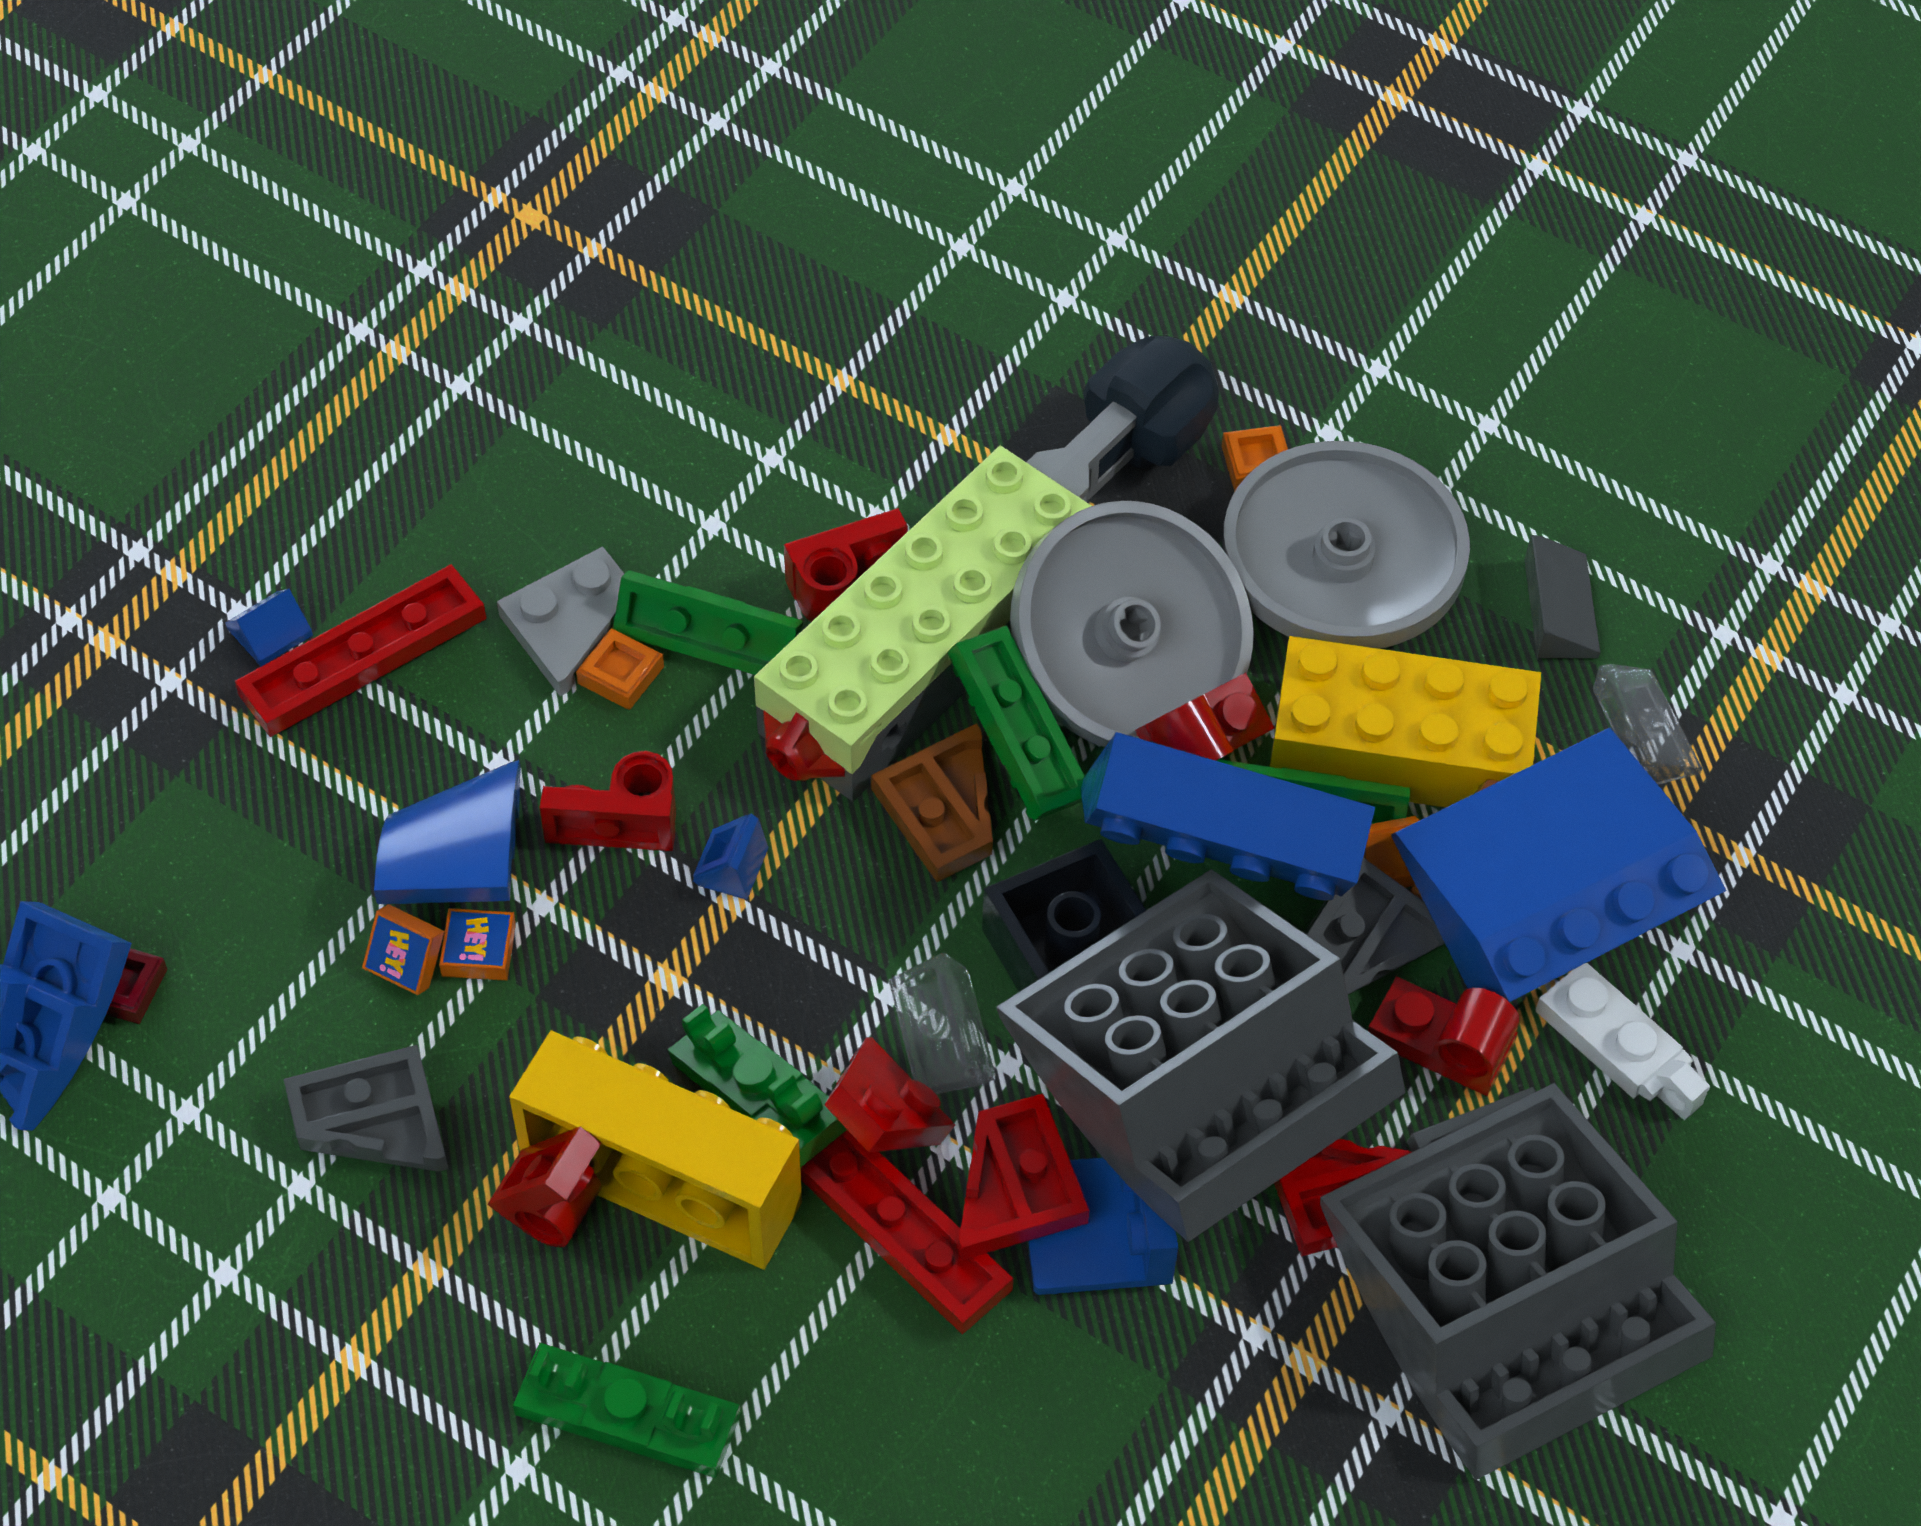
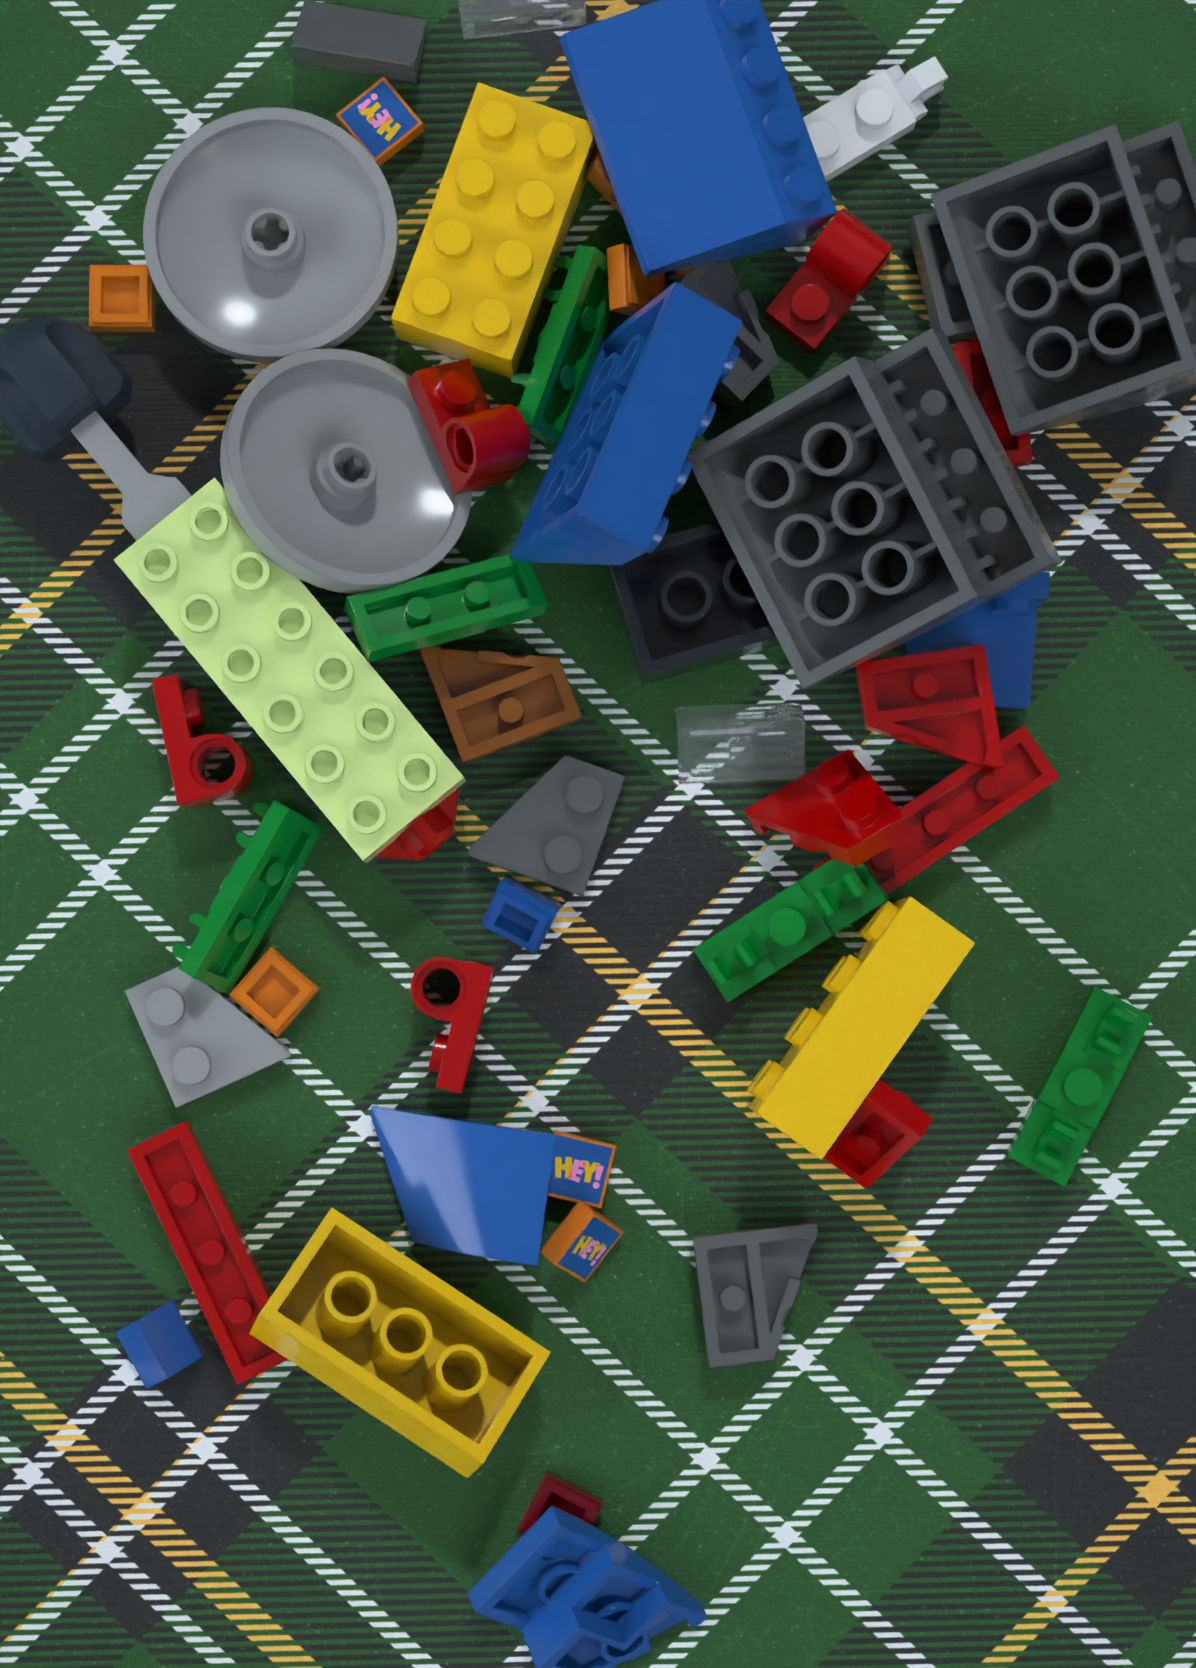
camera: 80 degrees left, 30 degrees up
(285, 792) = (400, 1343): none -> yellow brick
(823, 876) = (555, 826): none -> dark grey wing
(1486, 628) = (380, 121): none -> tile

